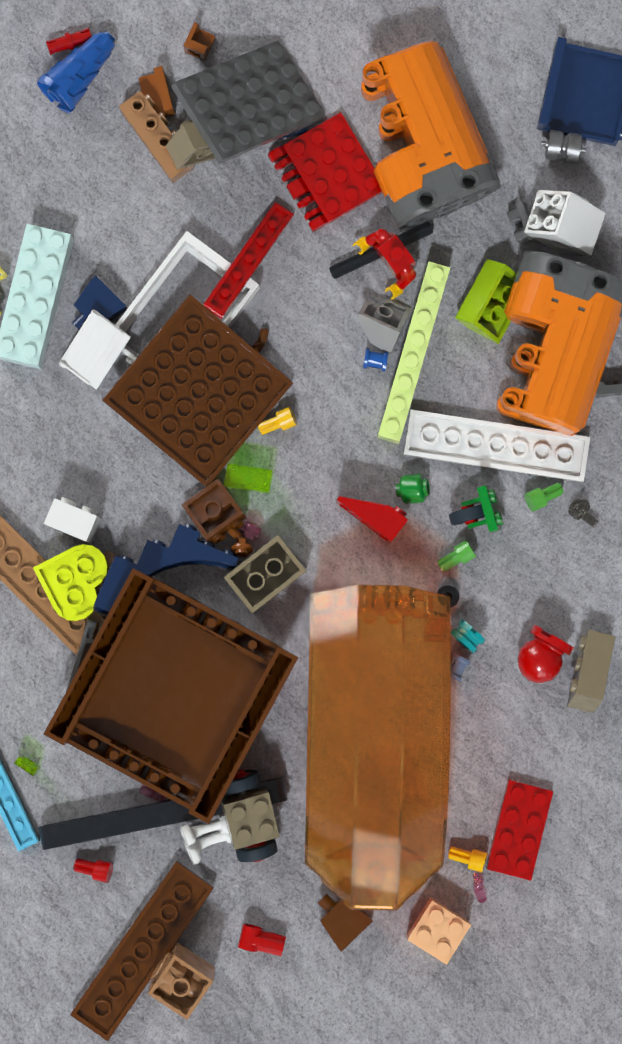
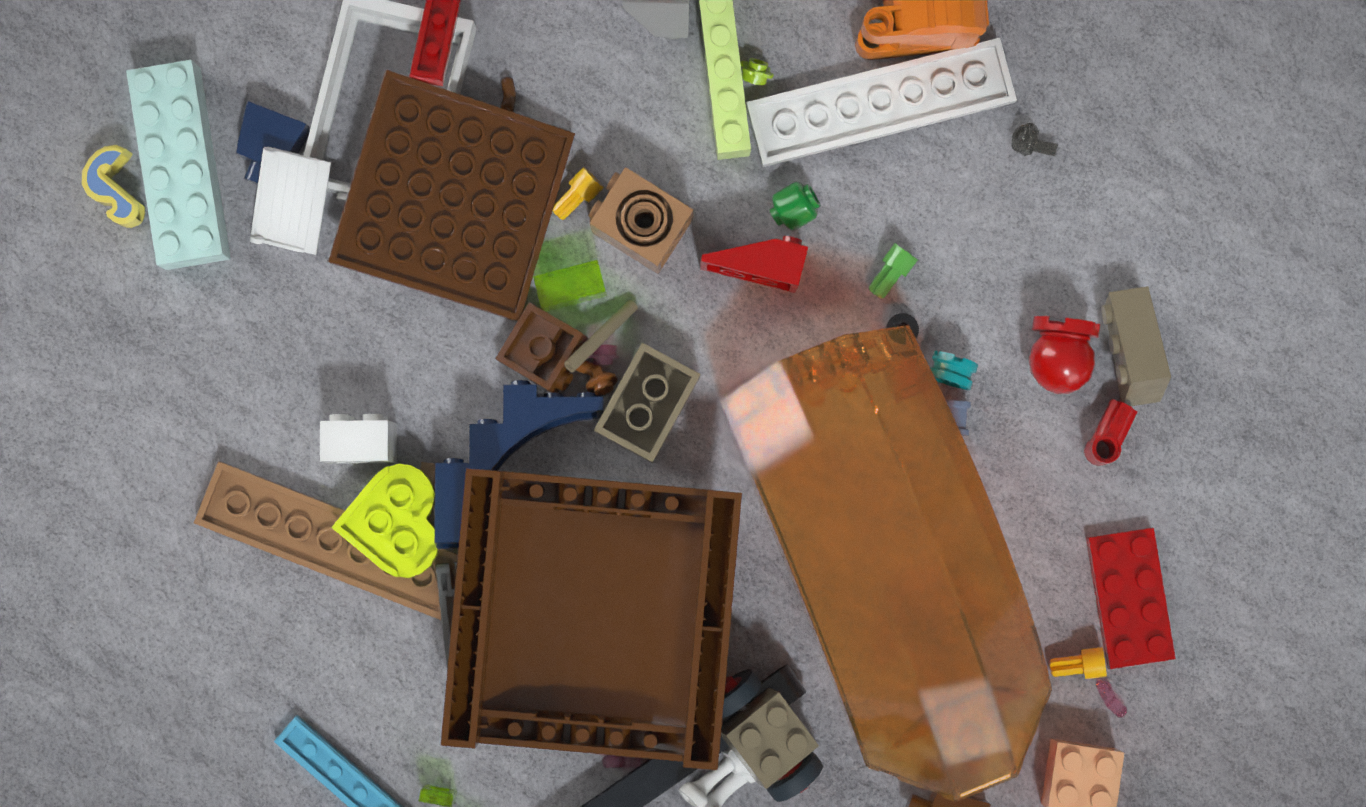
camera: 25 degrees left, 0 degrees up
(253, 519) = (600, 335): none -> dark tan piece
(307, 442) = (629, 201): none -> medium nougat brick
(375, 360) = (671, 56): blue bush -> none
(425, 392) = (756, 71): none -> lime plate
(470, 514) = (885, 206): green plate -> none
(538, 498) = (967, 147): bright green piece -> none
(553, 717) = (1112, 431): none -> red piece

